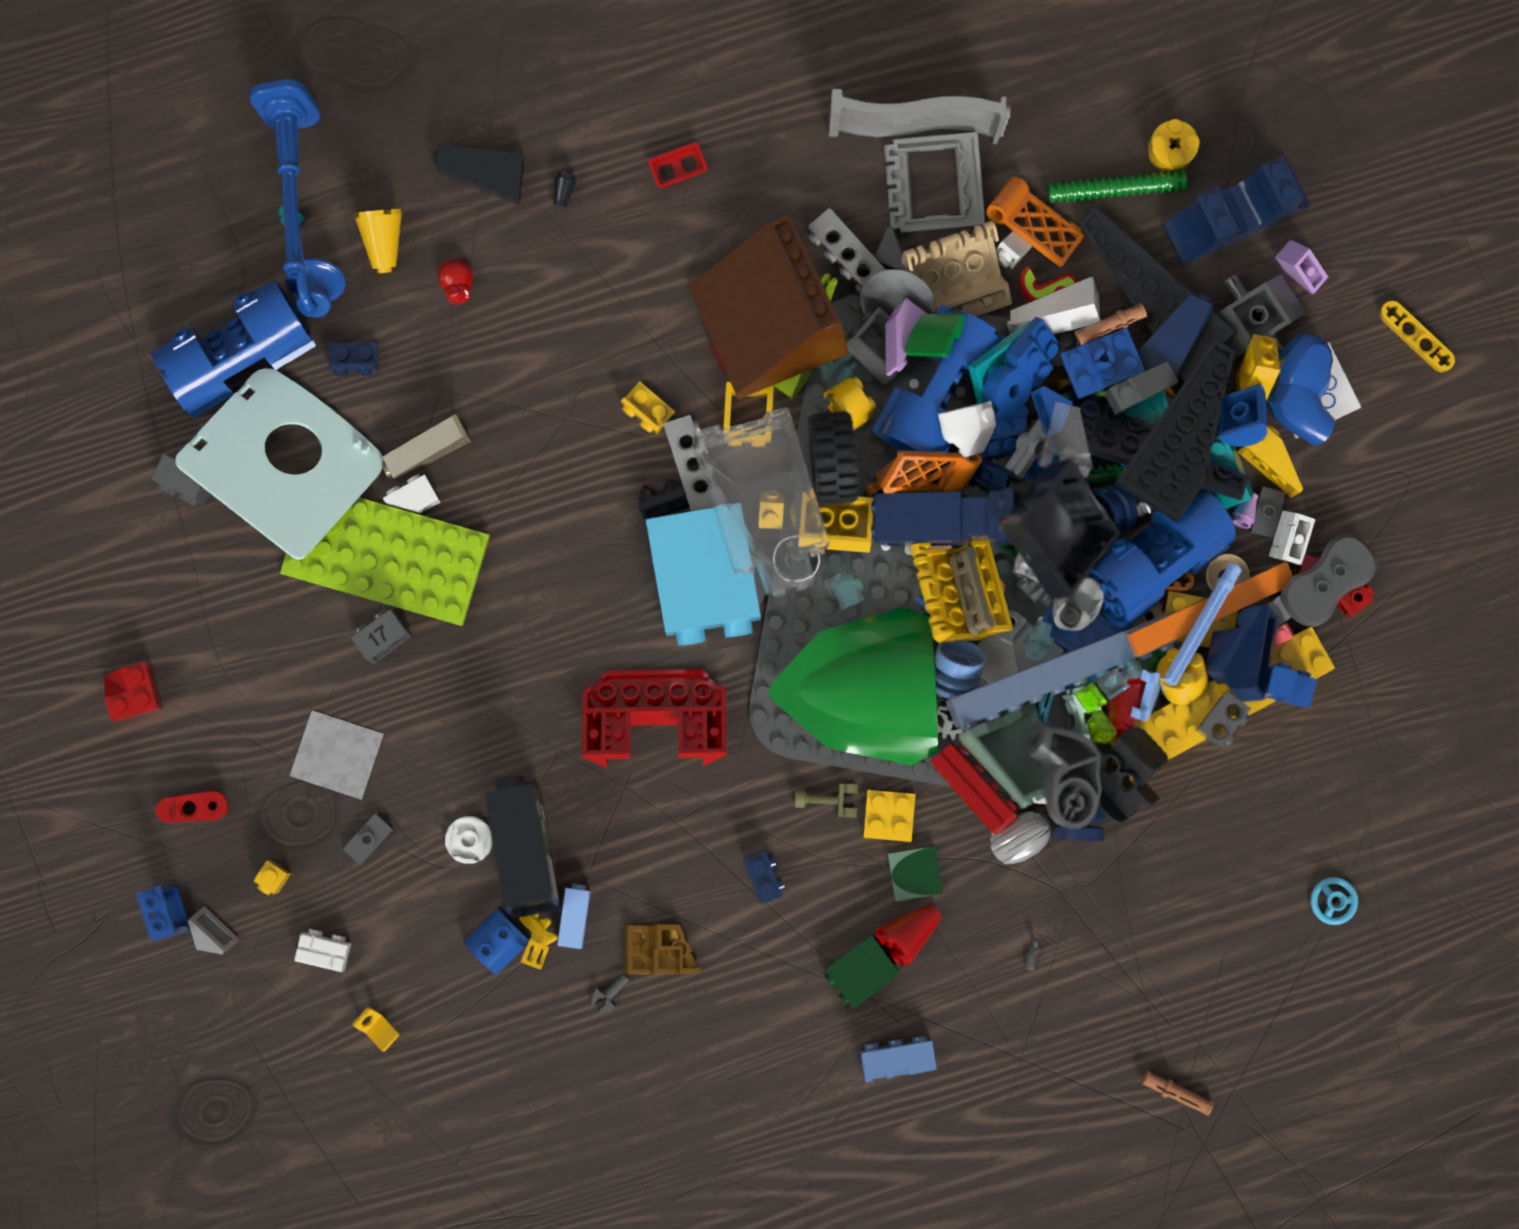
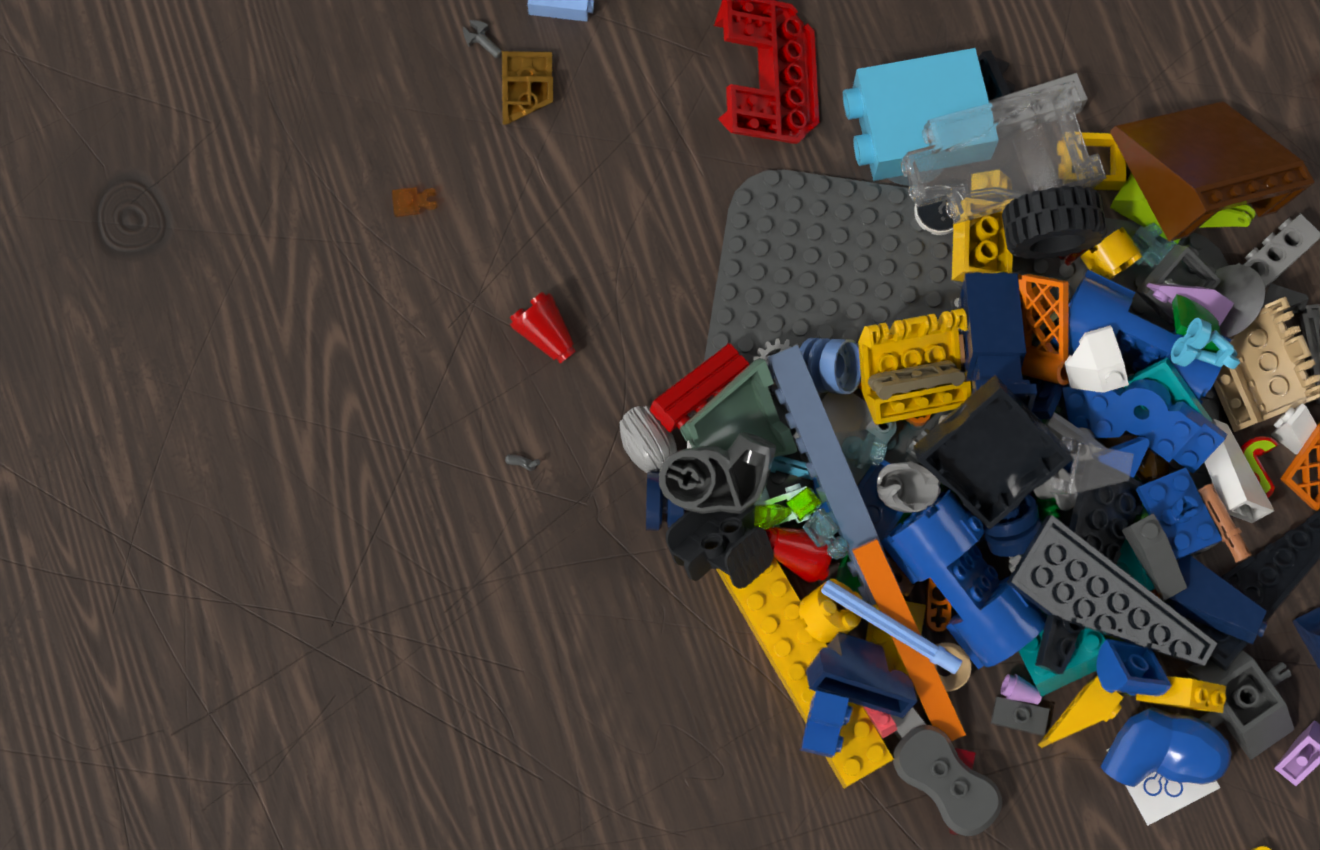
camera: 90 degrees right, 10 degrees down
(647, 408) = (1091, 62): yellow bracket -> none
(761, 873) = (602, 181): dark blue brick -> none
(776, 1063) = (408, 201): none -> clear orange plate
(803, 798) = (686, 220): olive bar -> none
(847, 590) = (909, 258): clear light blue brick -> none
(861, 972) = (503, 281): dark green panel -> none
(867, 687) = (804, 274): green windscreen -> none
(889, 815) = (669, 311): yellow plate -> none
(897, 1058) = (411, 316): medium blue wedge -> none
(915, 873) = (608, 338): dark green tile -> none
(960, 338) = (1196, 338): none -> medium azure piece
(1151, 697) = (806, 576): light blue flag -> none
(1178, 1093) = (372, 612): nougat pin -> none
(1219, 715) = (789, 648): dark grey brick -> none
(1292, 537) = (993, 739): white brick -> none
(1343, 901) = (599, 781): medium azure piece -> none
(1350, 606) = (916, 813): red brick -> none

